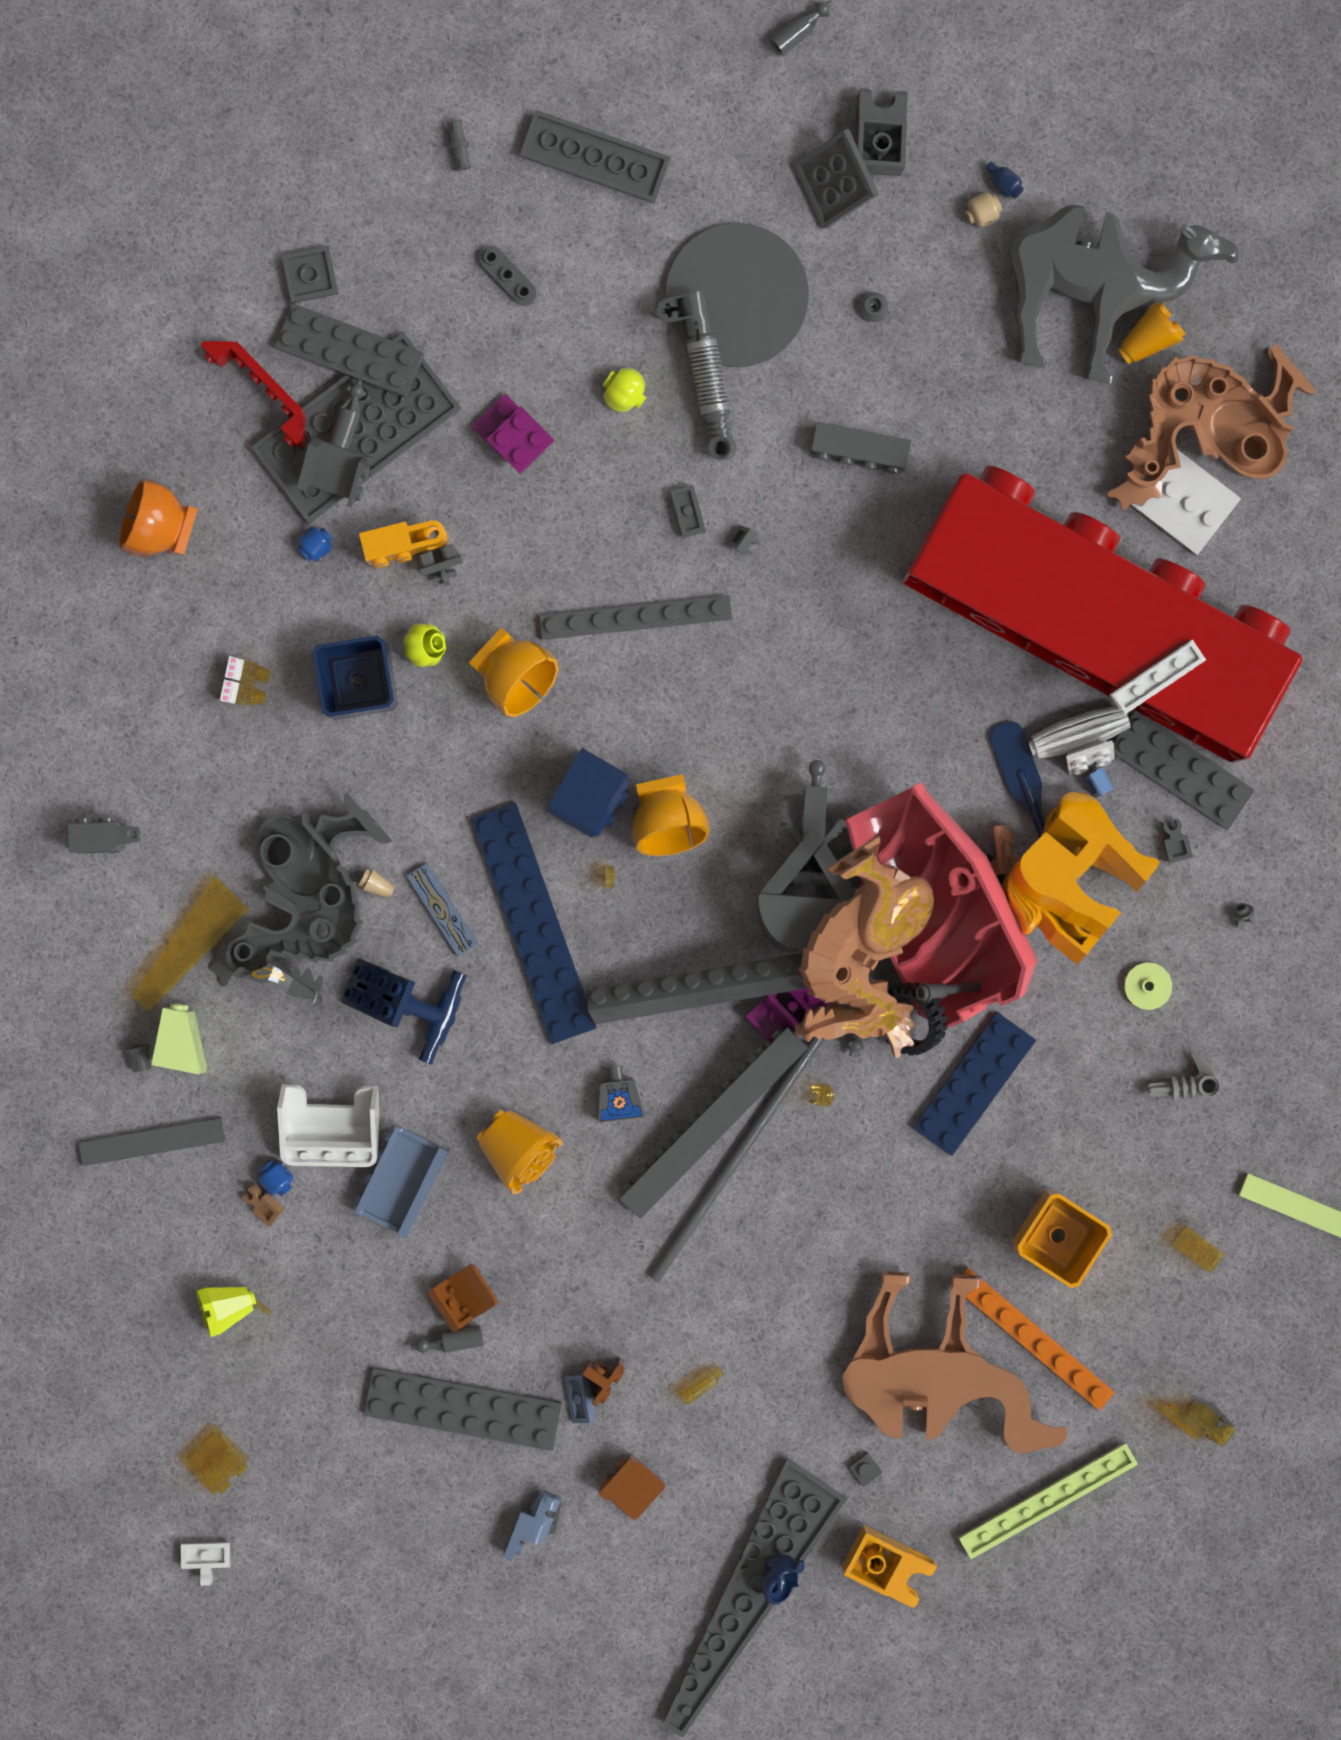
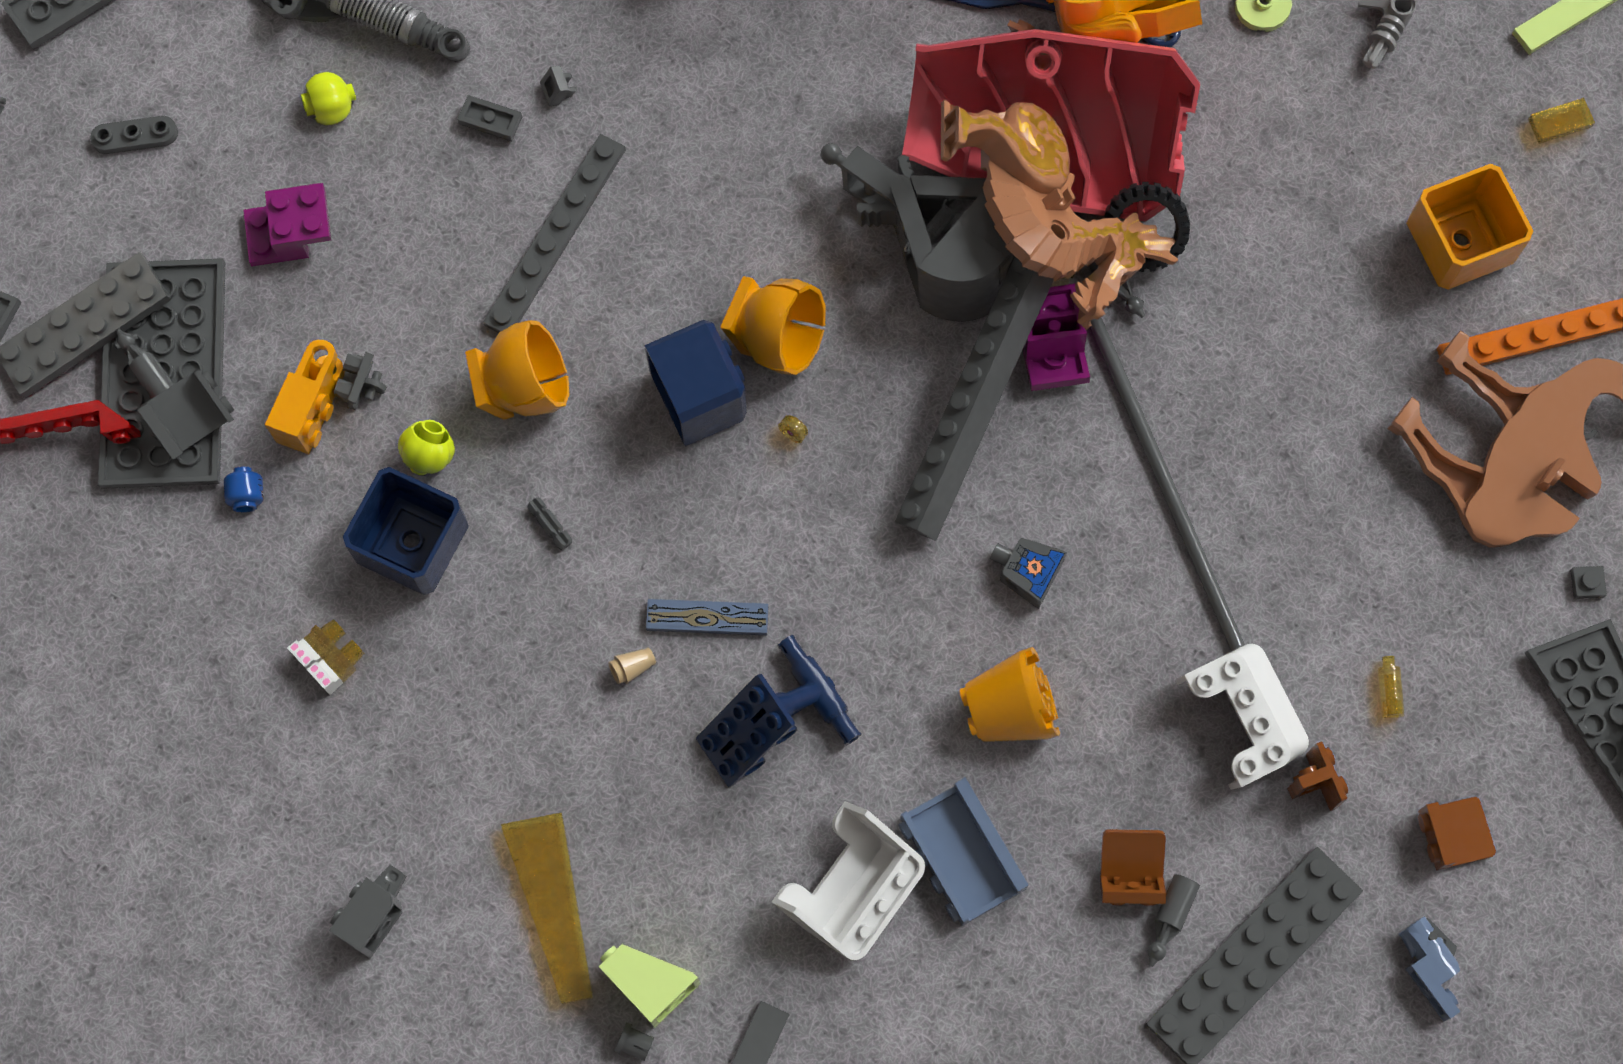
camera: 55 degrees left, 15 degrees down
(159, 521) = (94, 619): orange plate -> none
(266, 1207) = (893, 1017): medium nougat plate -> none
(275, 1178) = (868, 985): blue head -> none
(312, 889) = (589, 723): dark grey animal -> none
(433, 761) = (549, 523): none -> dark grey axle
(533, 923) = (788, 535): dark blue plate -> none
(580, 1398) = (1324, 821): sand blue plate -> none
(624, 1310) = (1260, 706): none -> white windscreen
(713, 1122) = (1119, 487): dark grey brick -> none
(825, 1095) = (1165, 367): clear yellow plate -> none
(927, 992) = (1131, 180): dark grey pin -> none
(974, 1083) = (1252, 222): dark blue plate -> none

